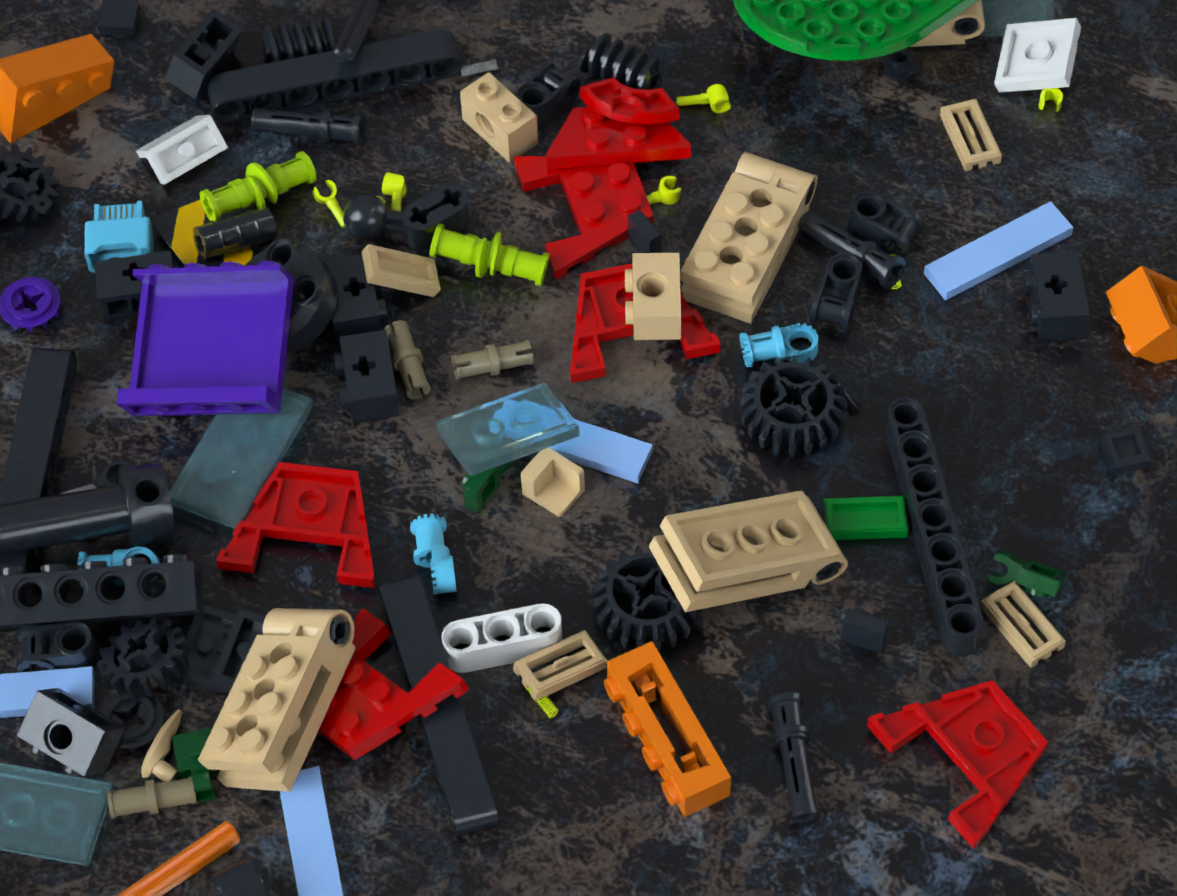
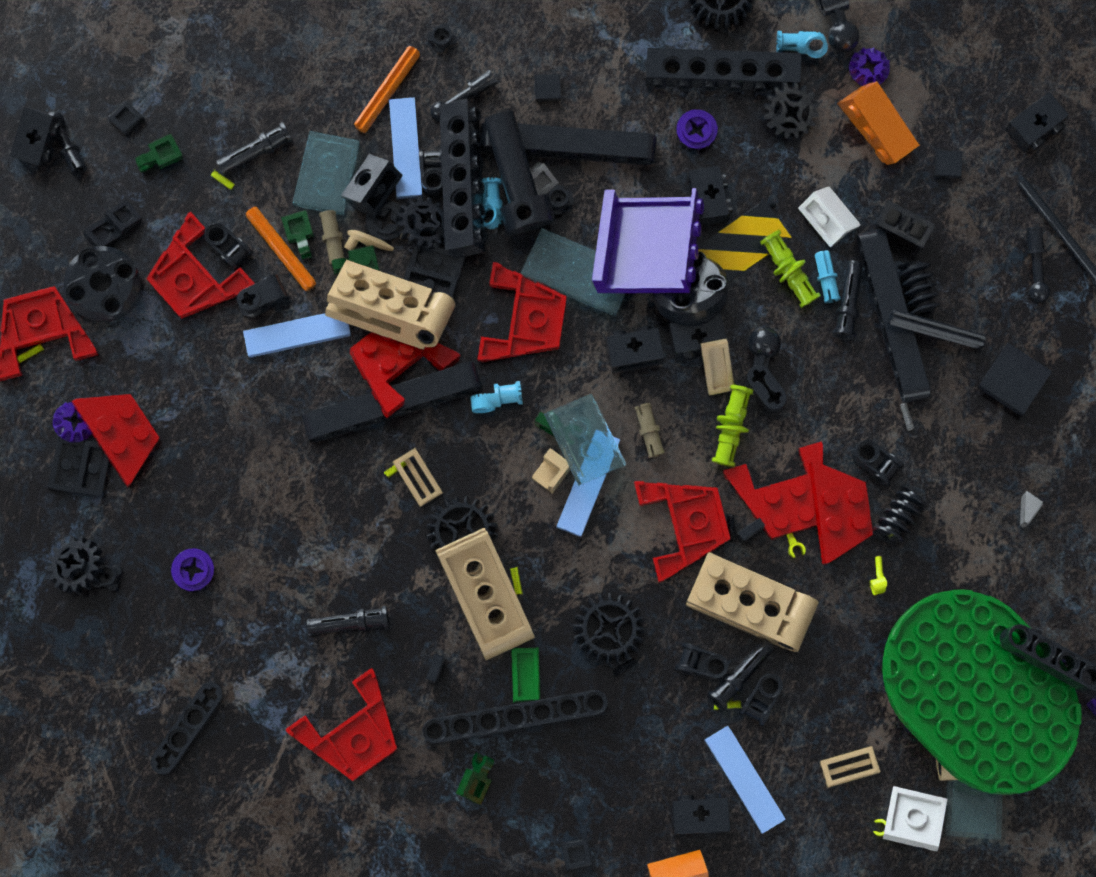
camera: 90 degrees right, 20 degrees up
(117, 233) = (751, 181): medium azure piece -> none
(134, 847) = (299, 230): none -> dark green plate
(235, 233) = (750, 256): black axle -> none
(270, 149) = (827, 276): none -> medium azure axle
(331, 202) = (784, 317): neon yellow hand -> none
(394, 186) = (796, 363): neon yellow hand -> none
(407, 360) = (650, 374): dark tan pin -> none
(481, 634) = (430, 429): white beam -> none
(499, 117) = (853, 429): tan brick -> none
(629, 104) = (861, 520): red tile -> none
(660, 277) = (674, 542): tan brick -> none
(690, 786) = (354, 537): orange brick -> none
(777, 344) = (661, 621): medium azure connector -> none
(1042, 649) = (424, 786): tan tile -> none

